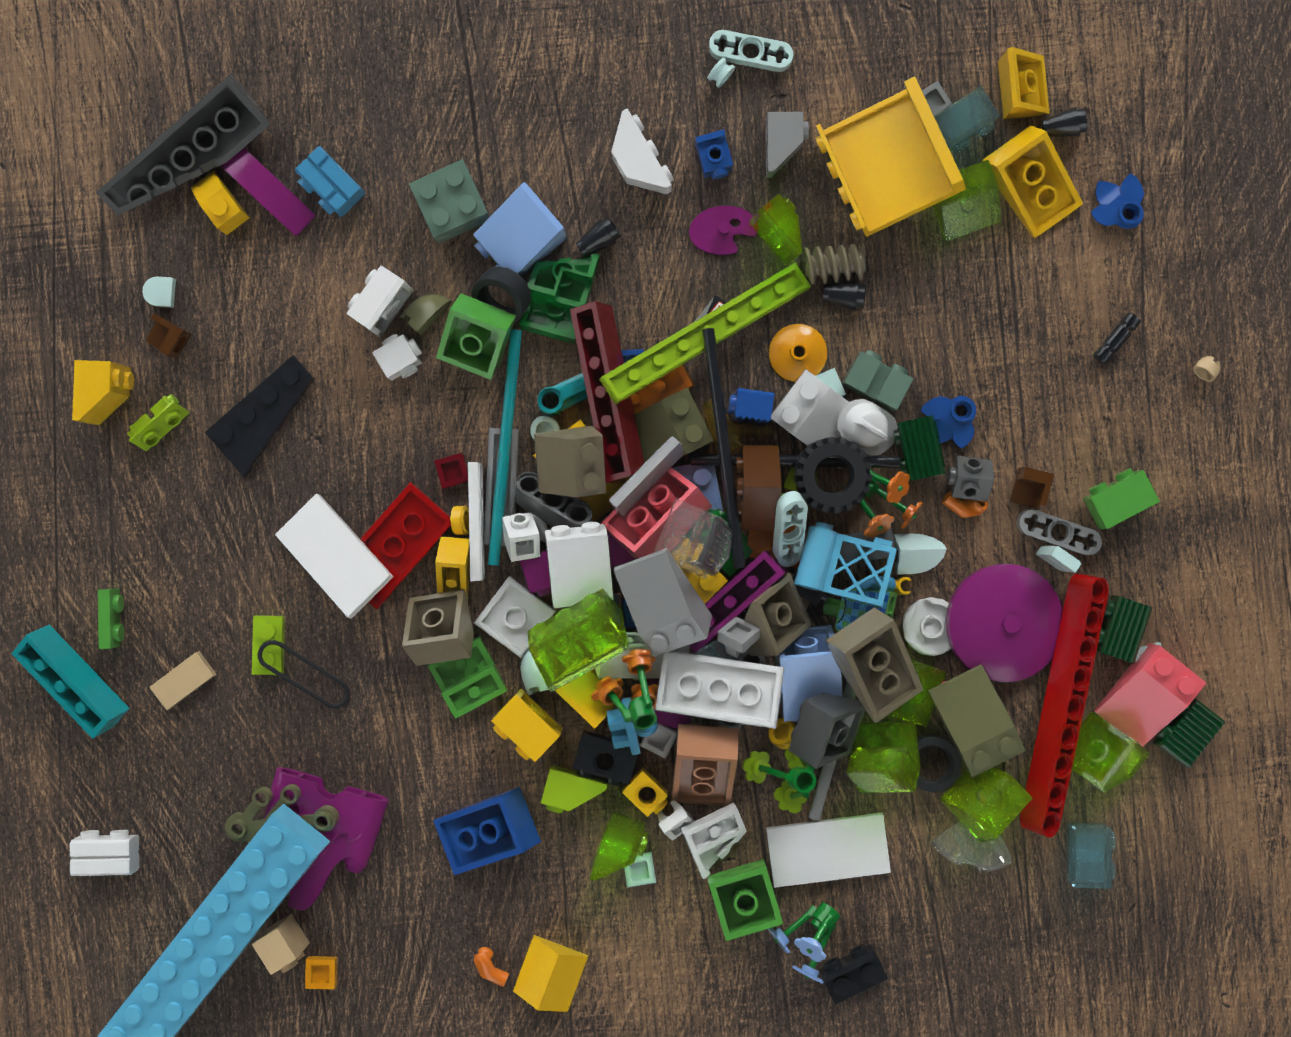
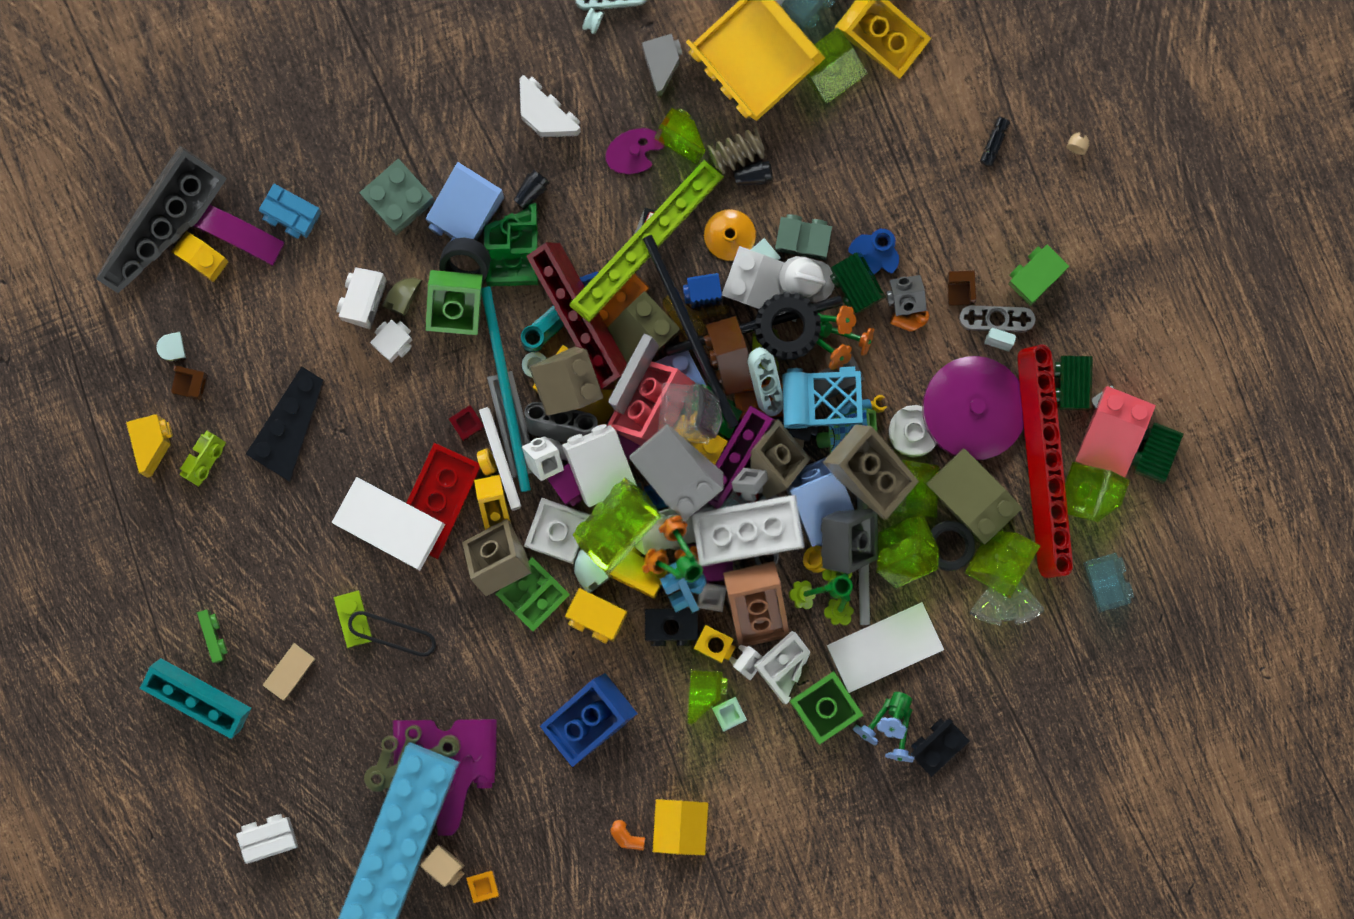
camera: 15 degrees left, 5 degrees down
(568, 789) = (648, 662): lime slope -> none
(712, 142) = (605, 80): blue brick -> none
(917, 553) = (882, 372): light aqua brick -> none
(1116, 199) = (958, 26): blue plate -> none

